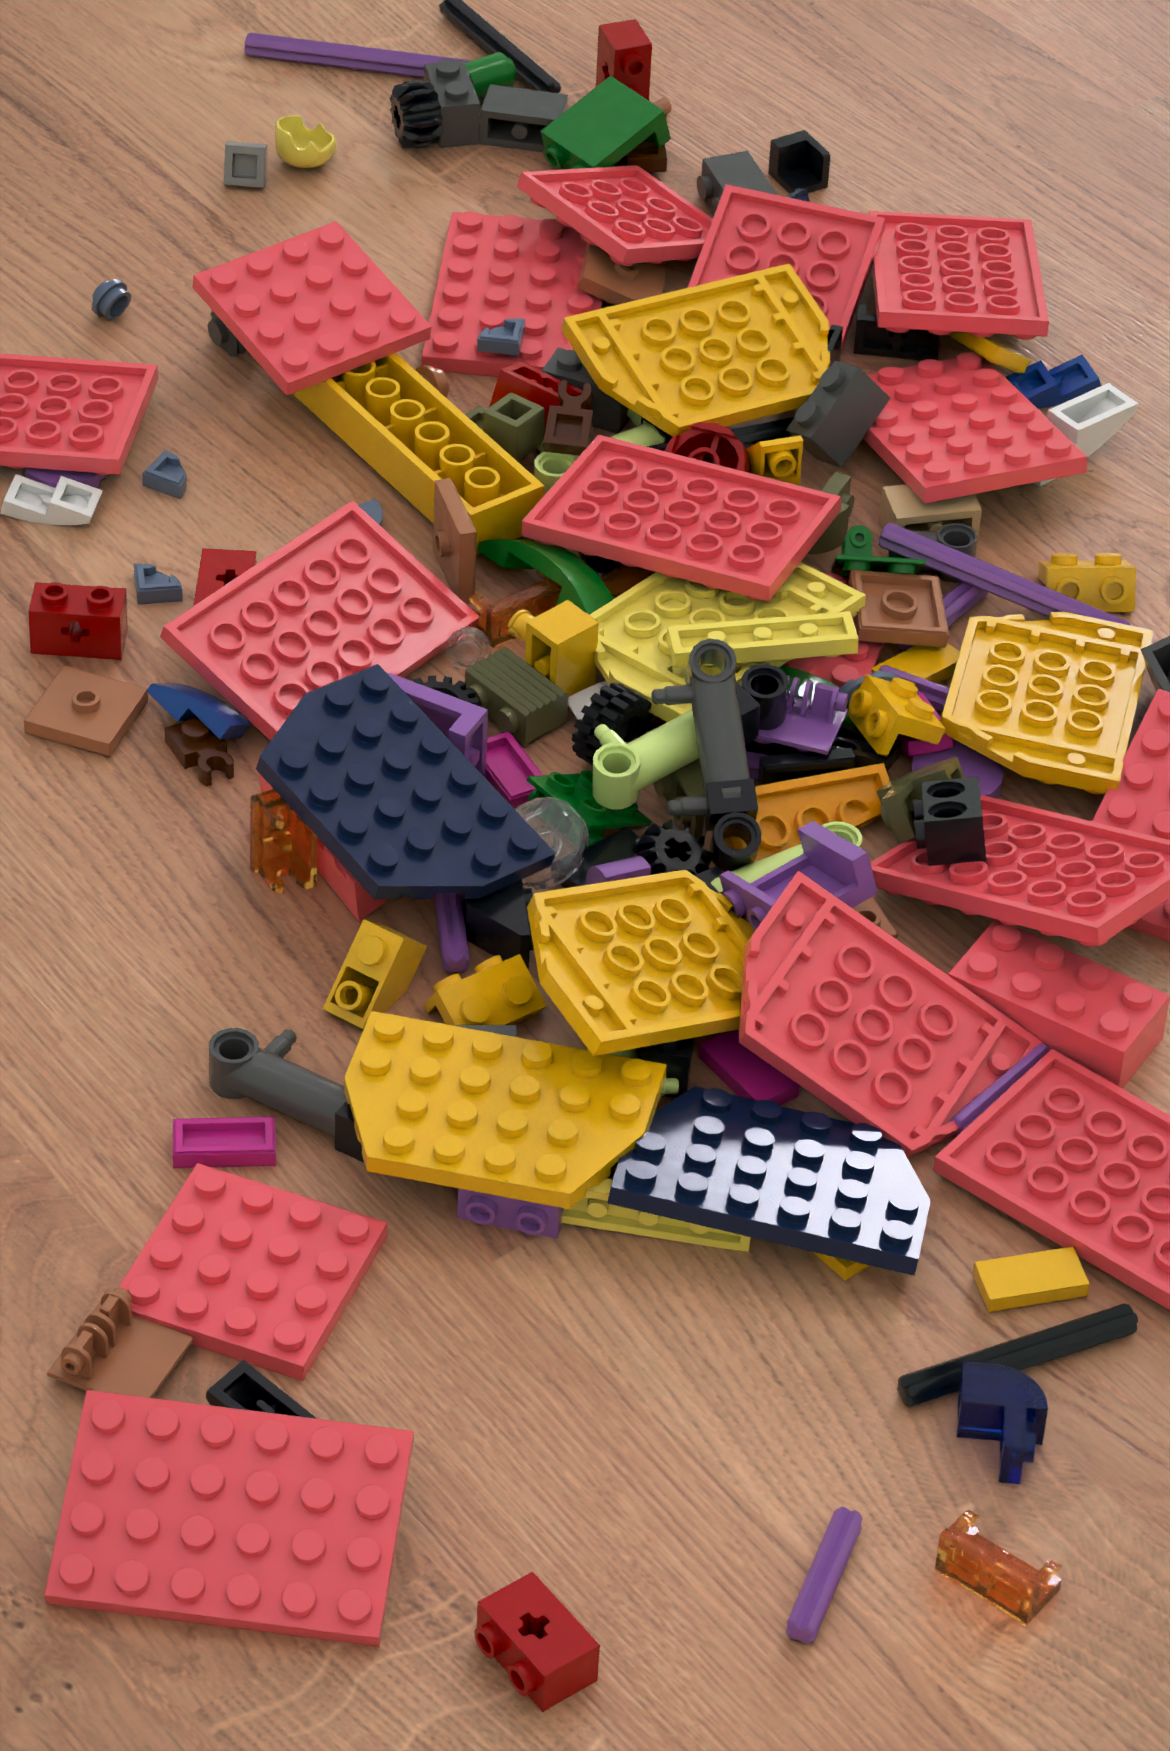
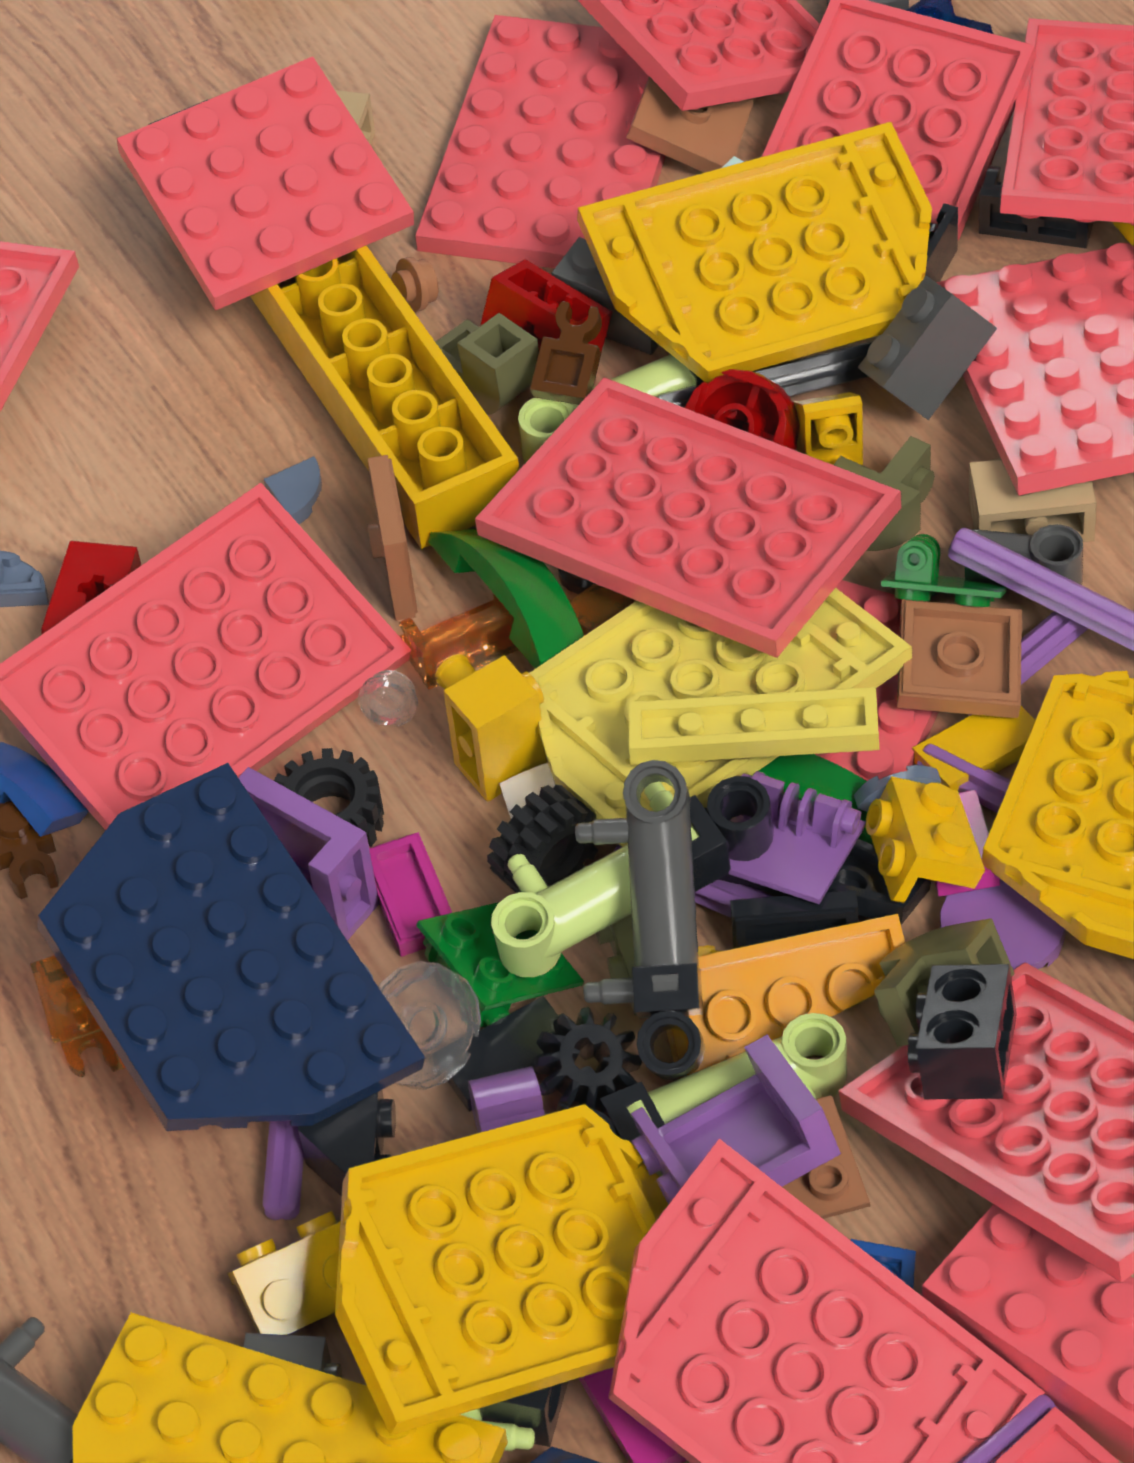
camera: 15 degrees right, 10 degrees up
(110, 299) = (44, 144): sand blue plate -> none
(166, 475) = (64, 411): sand blue tile -> none
(374, 973) = (165, 1227): yellow slope -> none
(502, 339) = (518, 216): sand blue tile -> none
(517, 696) = (433, 779): olive brick -> none

